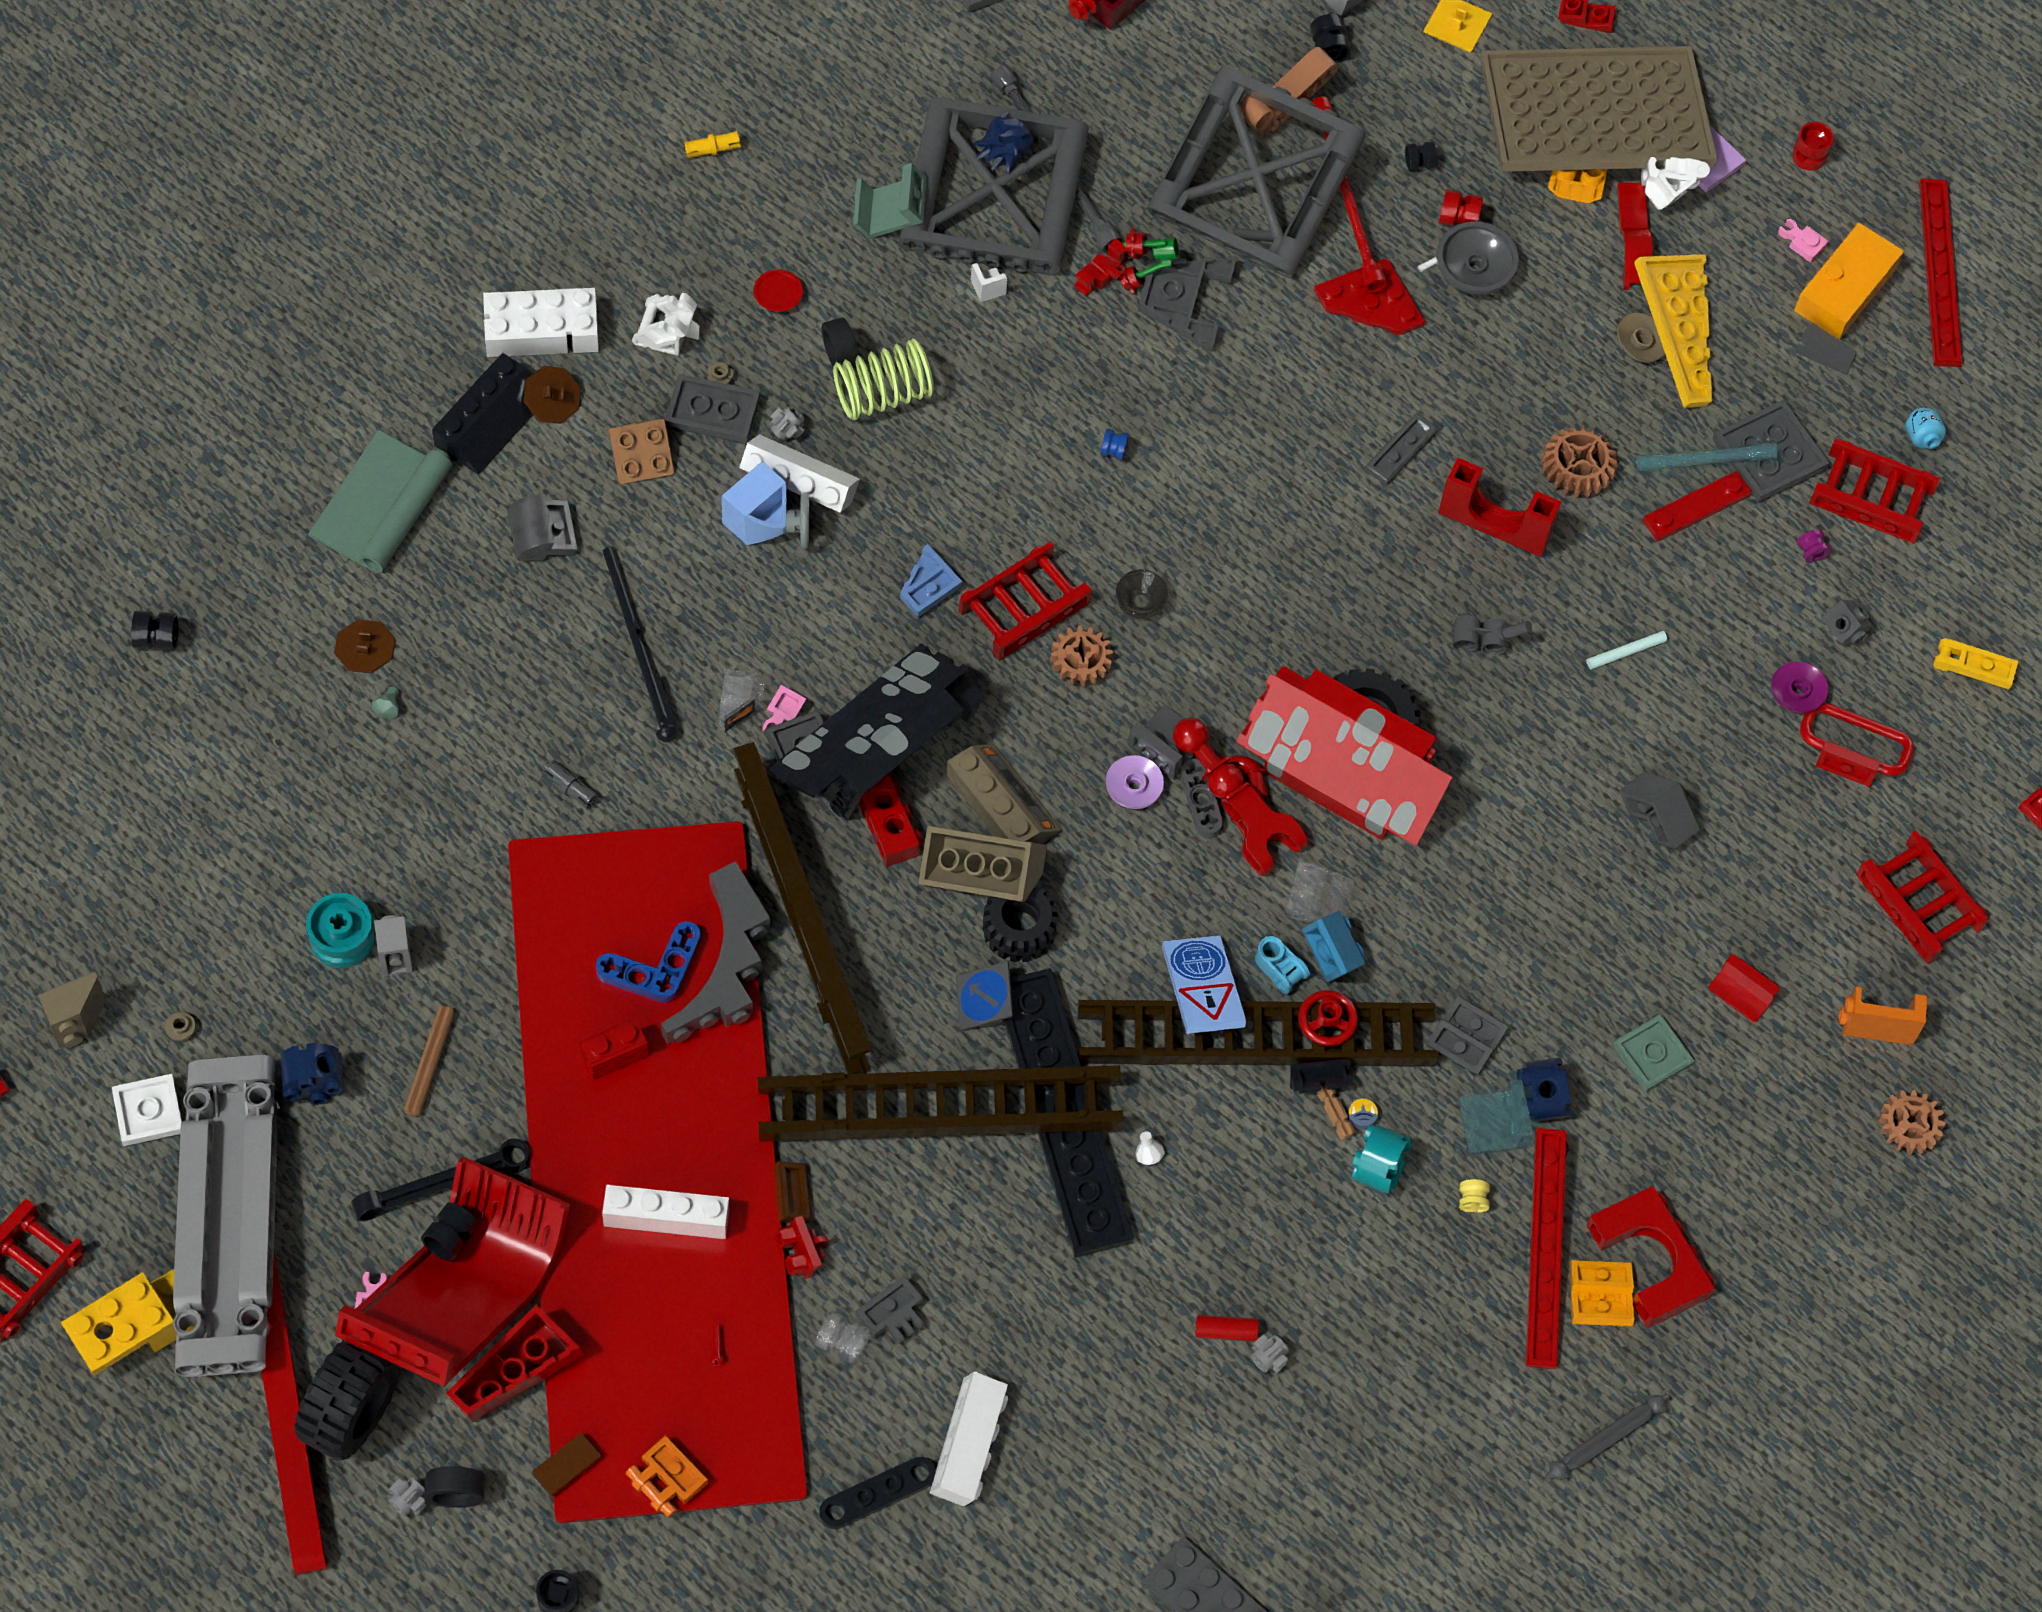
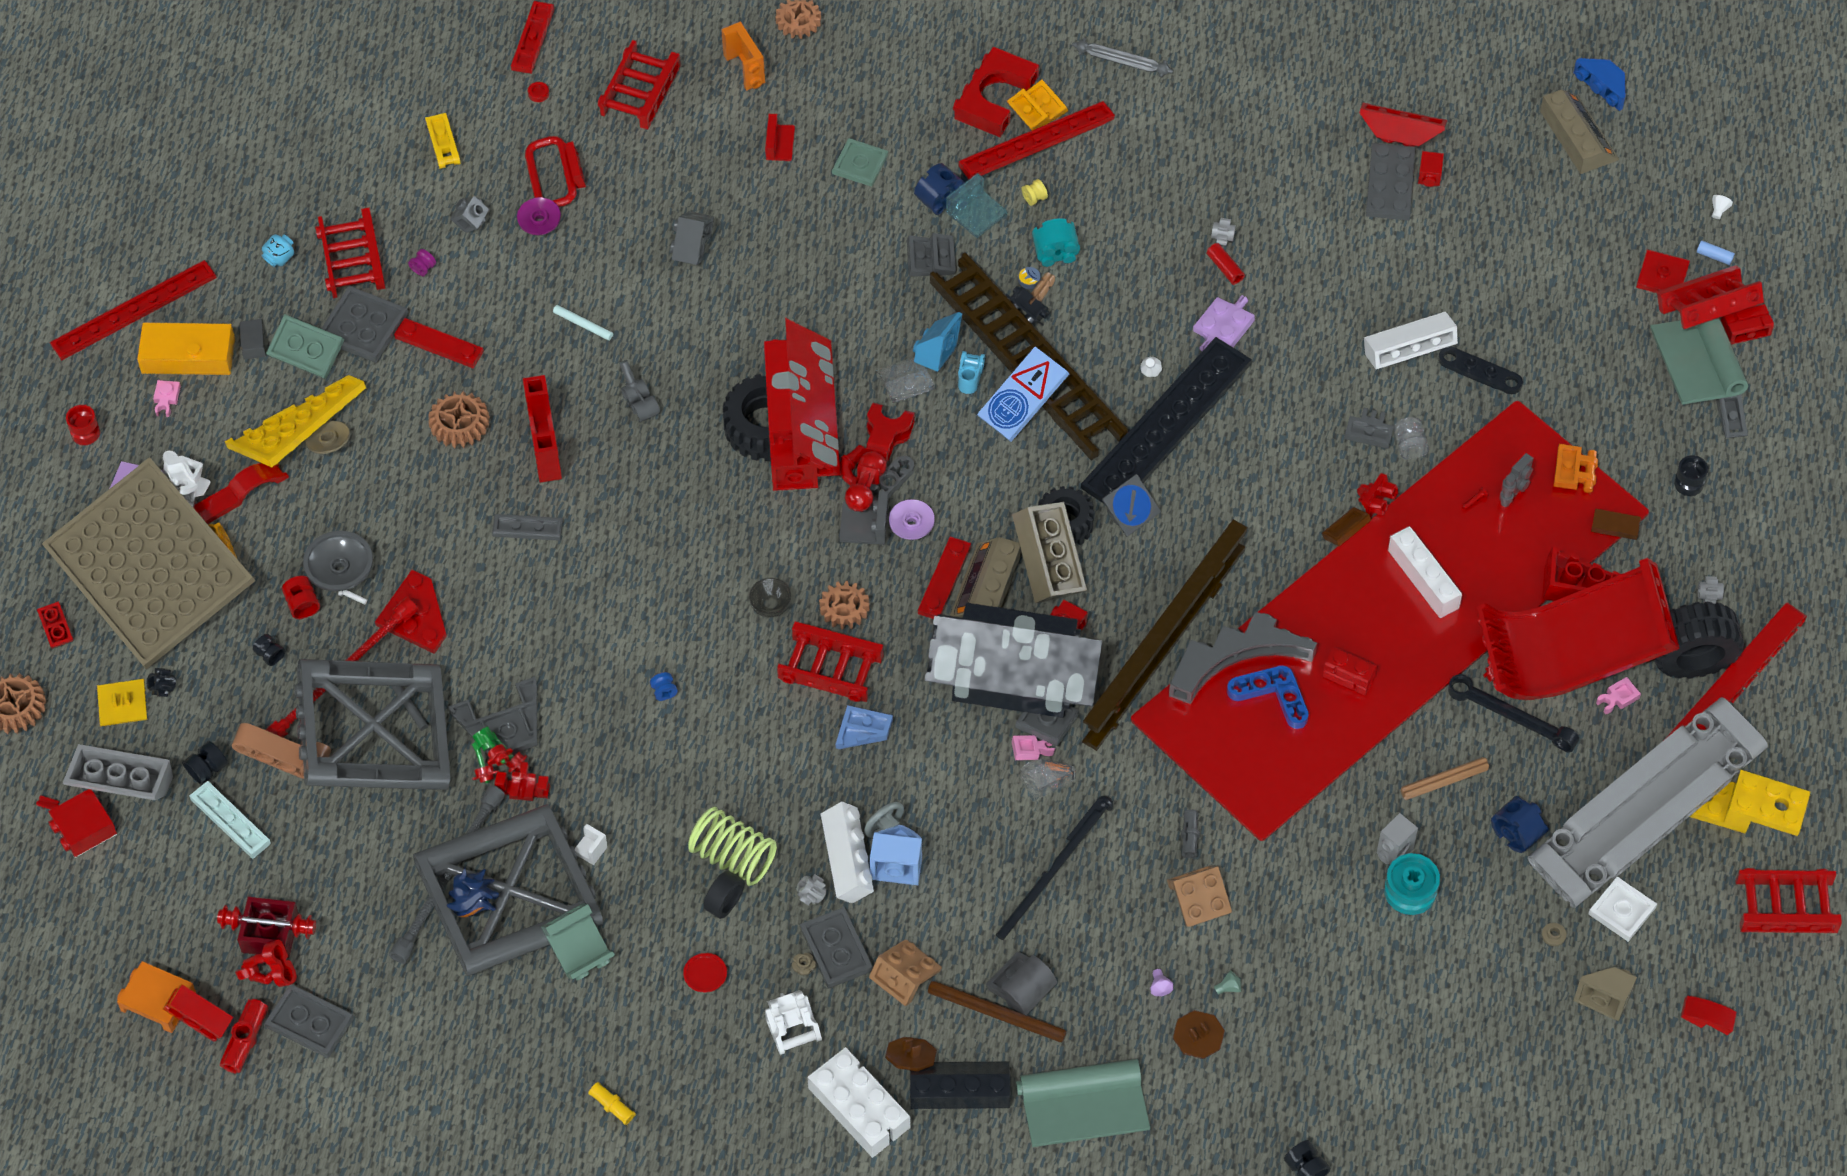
camera: 120 degrees left, 5 degrees down
(439, 645) = (1160, 985): none -> lavender rock
(448, 1234) = (1544, 674): black wheel -> none
(454, 1486) = (1684, 565): black tyre -> none
(504, 742) = (1201, 895): none -> medium nougat bracket
(548, 487) = (997, 1011): none -> reddish brown axle
(693, 1390) = (1517, 480): none -> dark grey plate
(942, 1125) = (1213, 490): dark brown ladder -> none
(1043, 771) = (944, 577): none -> red plate
(1148, 1268) = (1224, 321): none -> lavender plate
(1254, 29) = (230, 819): none -> light aqua plate
(1329, 1005) = (990, 314): red piece -> none
(1450, 53) = (161, 682): none -> black gear
(1659, 461) = (379, 325): clear light blue piece -> none
(1776, 383) = (305, 346): none -> sand green tile
(1986, 798) = (538, 92): none -> red tile

